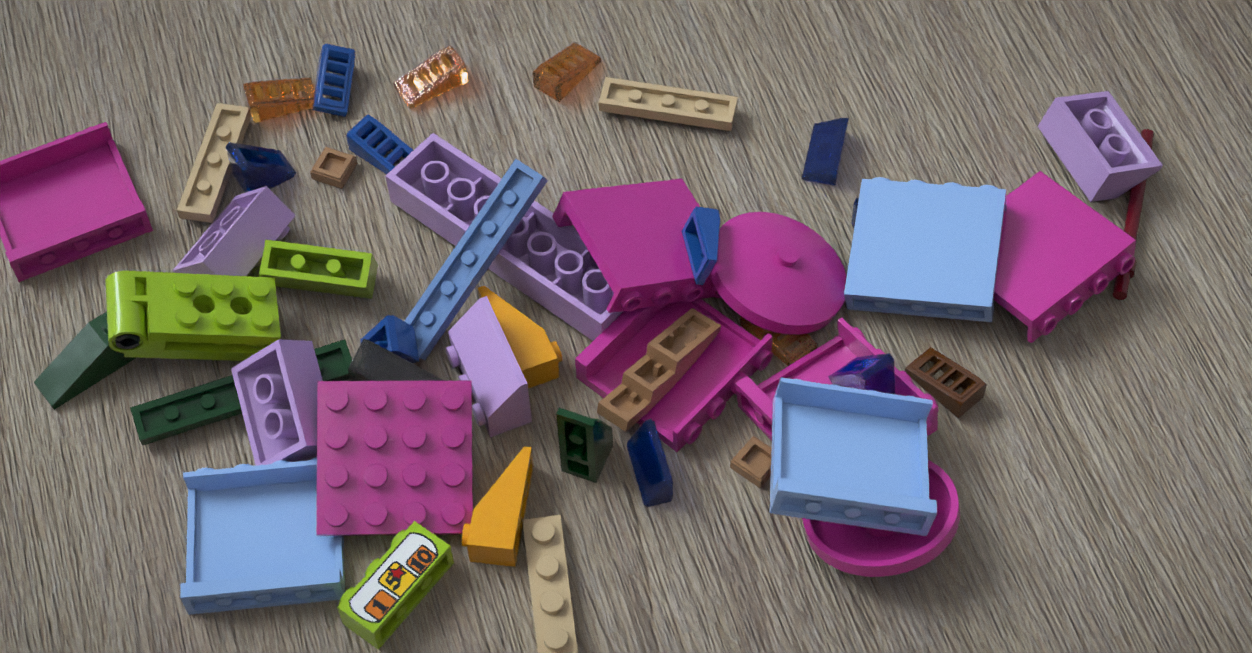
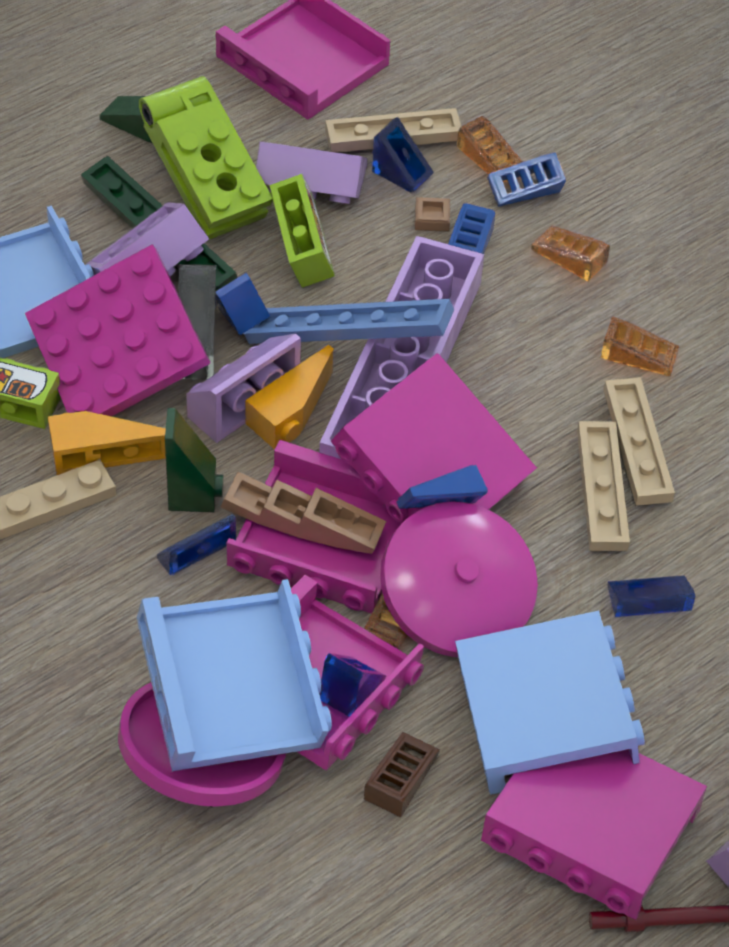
camera: 65 degrees right, 5 degrees down
(706, 144) = (603, 486): none -> tan plate

